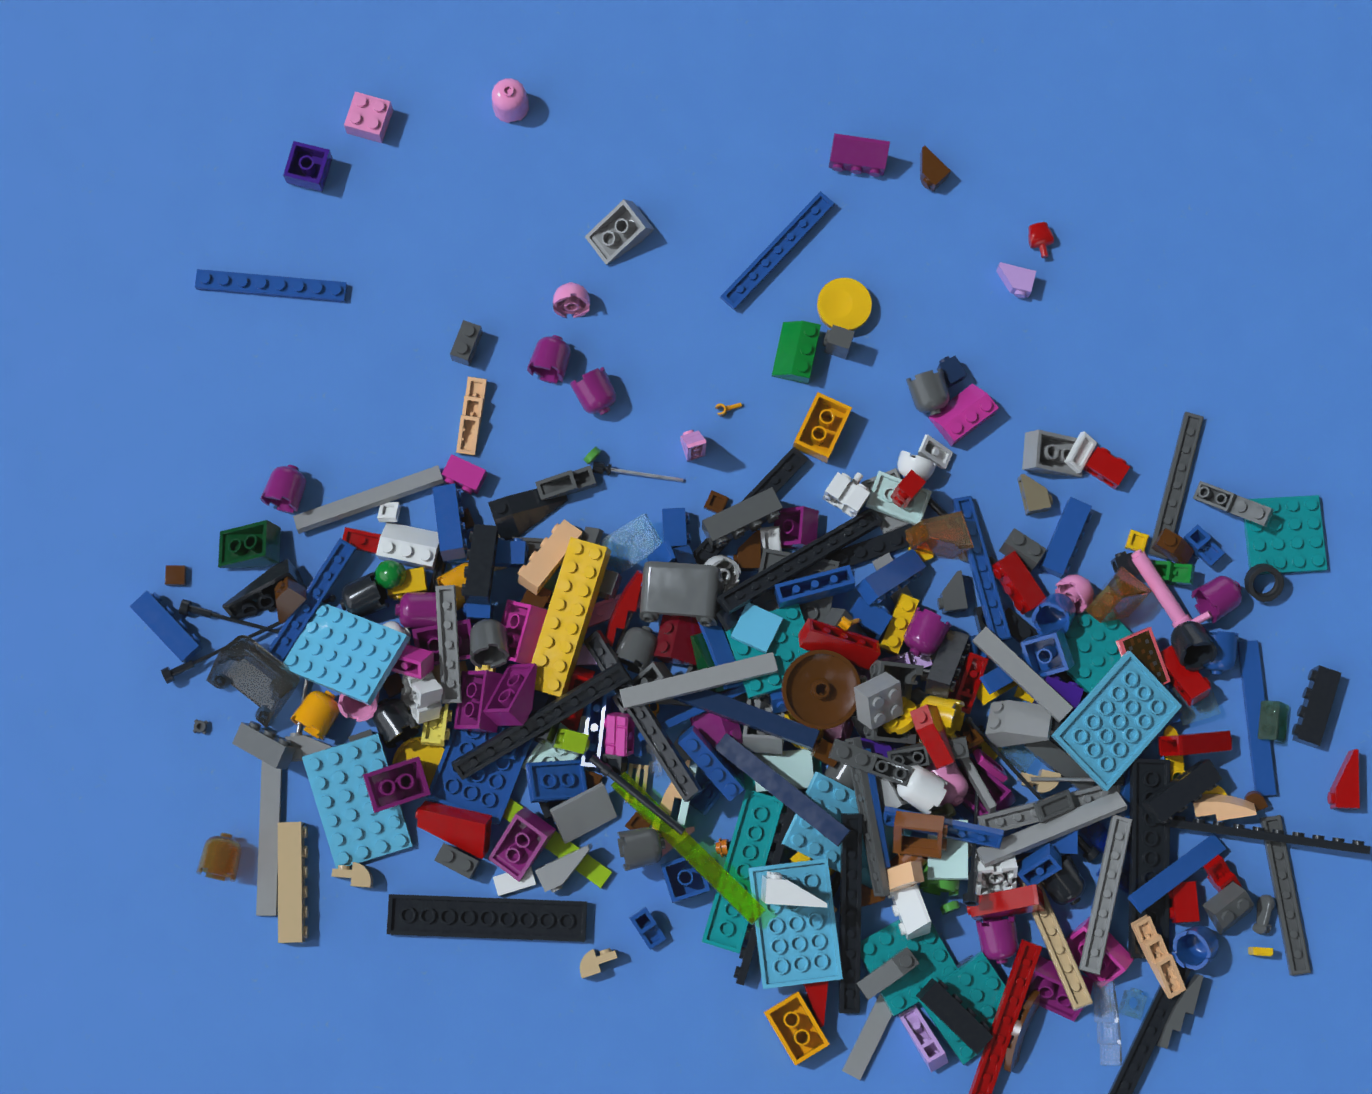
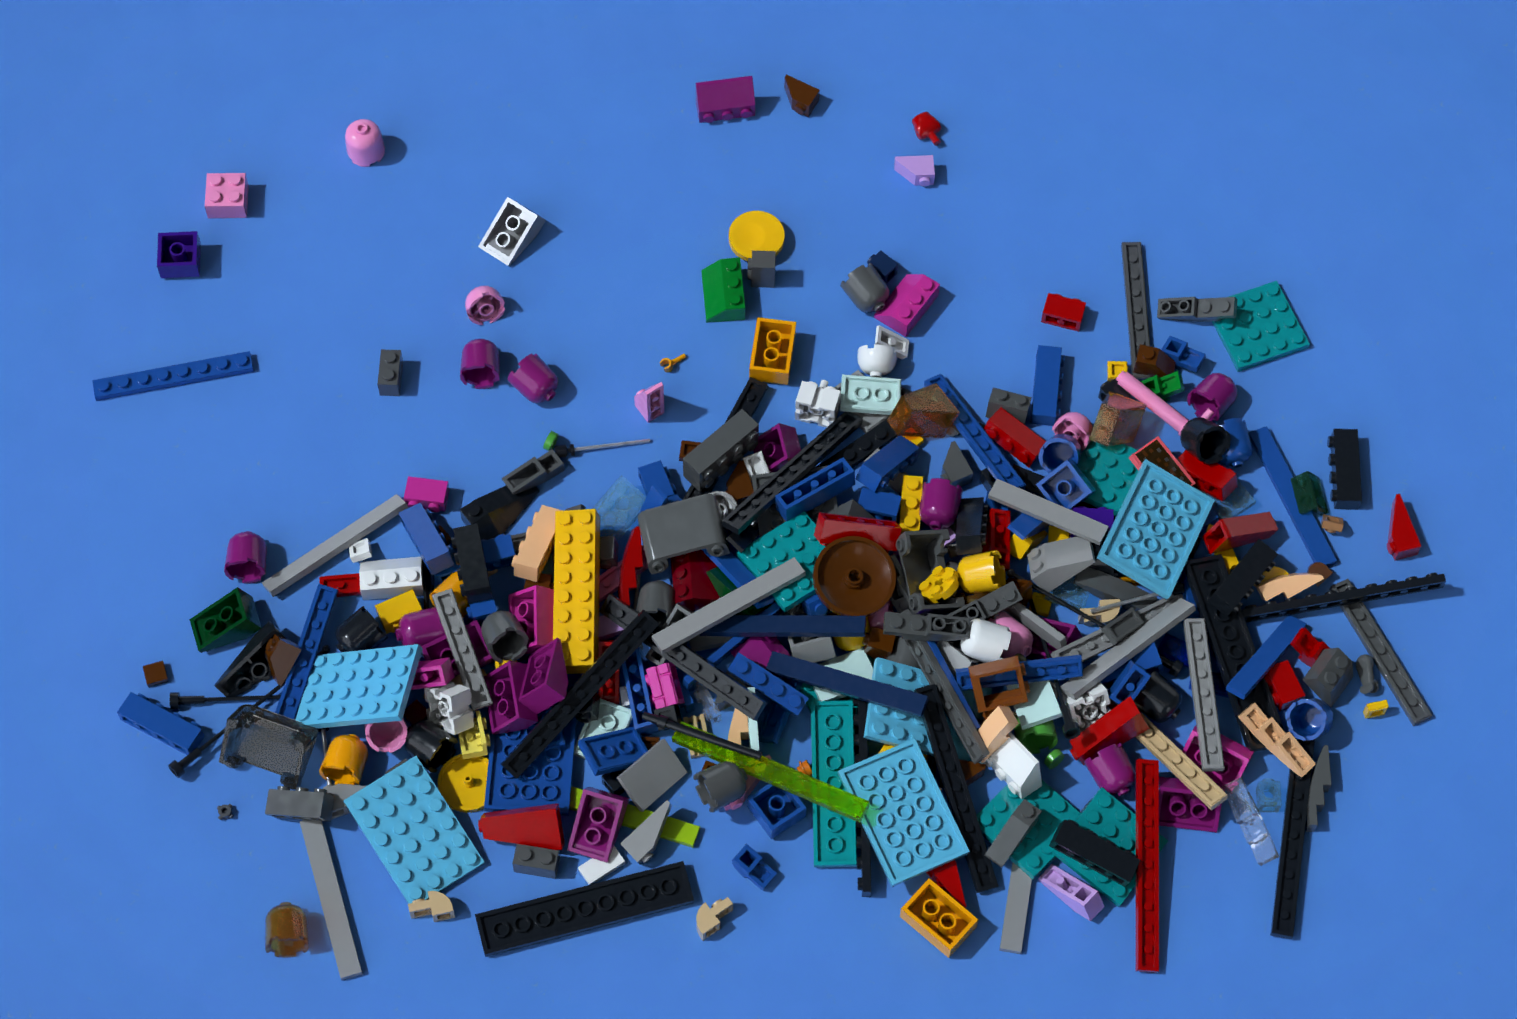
camera: 15 degrees left, 15 degrees down
(292, 882) = (368, 933): tan brick -> none
(390, 574) = (380, 603): green hair -> none
(396, 784) = (452, 797): magenta slope -> none
(471, 415) = (416, 438): light nougat slope -> none
(572, 741) = (617, 706): lime slope -> none
(756, 628) = (770, 541): medium azure tile -> none
(777, 250) = (673, 207): blue plate -> none
(781, 891) = (888, 768): white slope -> none
(845, 623) = (858, 510): light orange hand -> none
(878, 700) = (915, 569): light grey brick -> none
(907, 489) = (876, 377): red brick -> none
(932, 734) = (979, 585): red slope -> none
(990, 765) = (1046, 610): dark pink tile -> none
(1013, 1052) = (1165, 846): tile -> none
(1034, 495) = (1002, 356): dark tan slope -> none
(1046, 453) = (1007, 314): light grey slope -> none
(1080, 452) = (1033, 305): white tile -> none
(1274, 592) = (1238, 372): black tyre -> none
(1284, 756) = (1331, 523): none -> medium nougat plate

